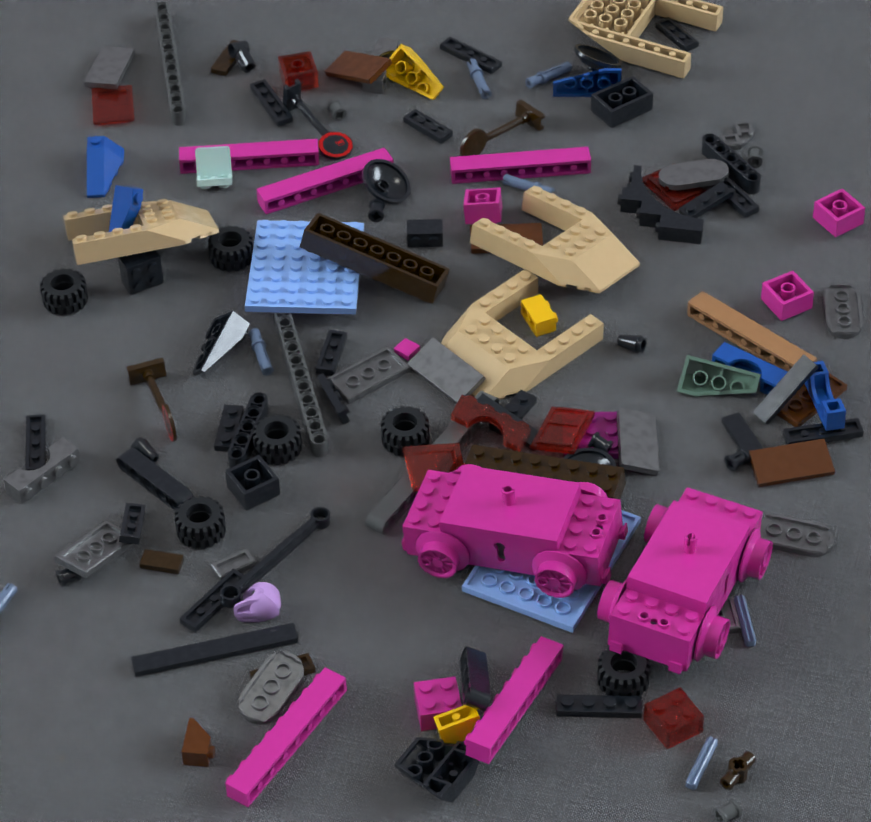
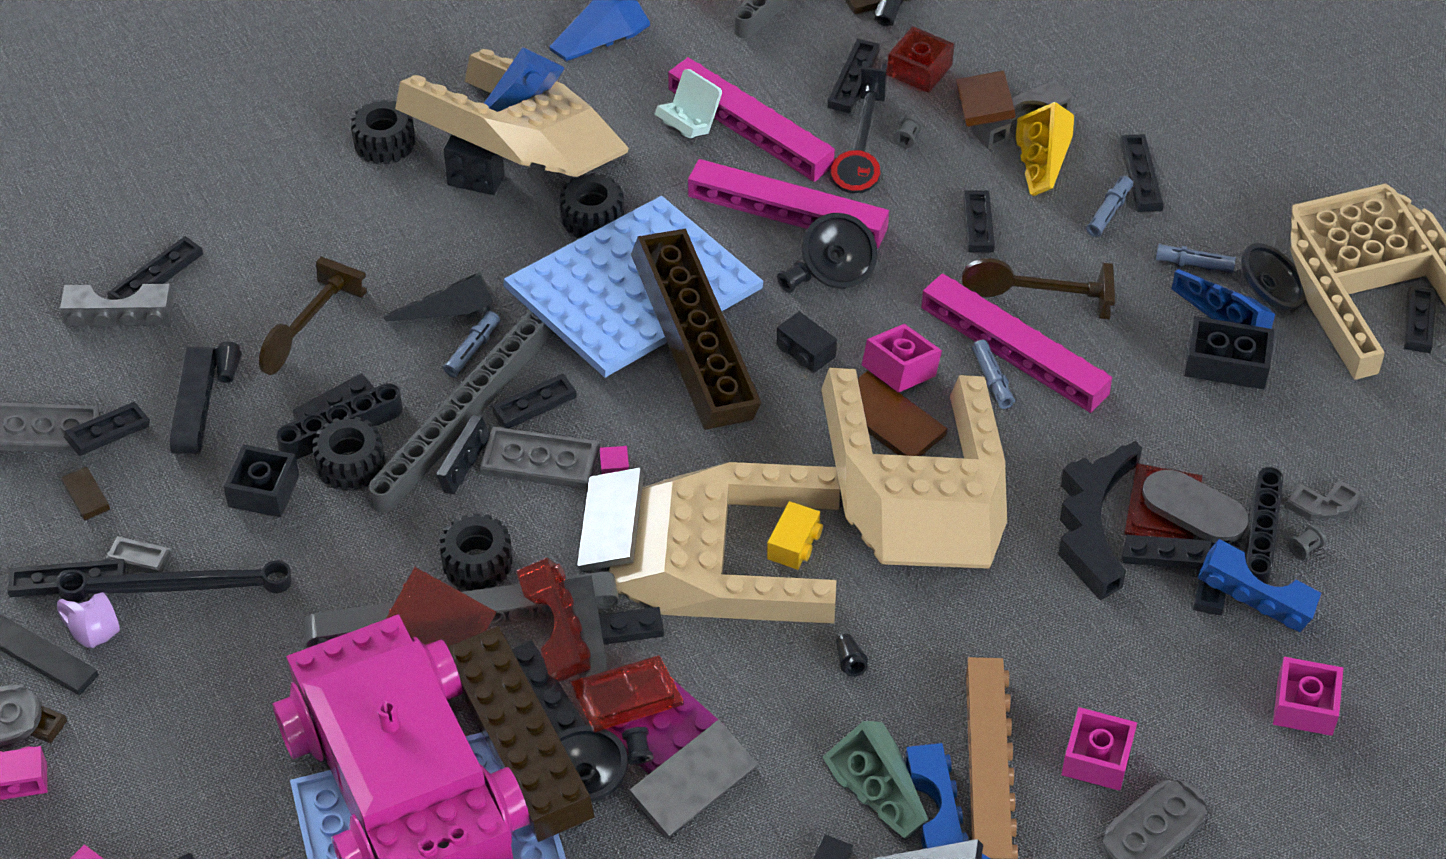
camera: 45 degrees right, 5 degrees up
(201, 510) = (158, 465): black tyre -> none
(746, 186) = (1228, 571): none -> blue arch

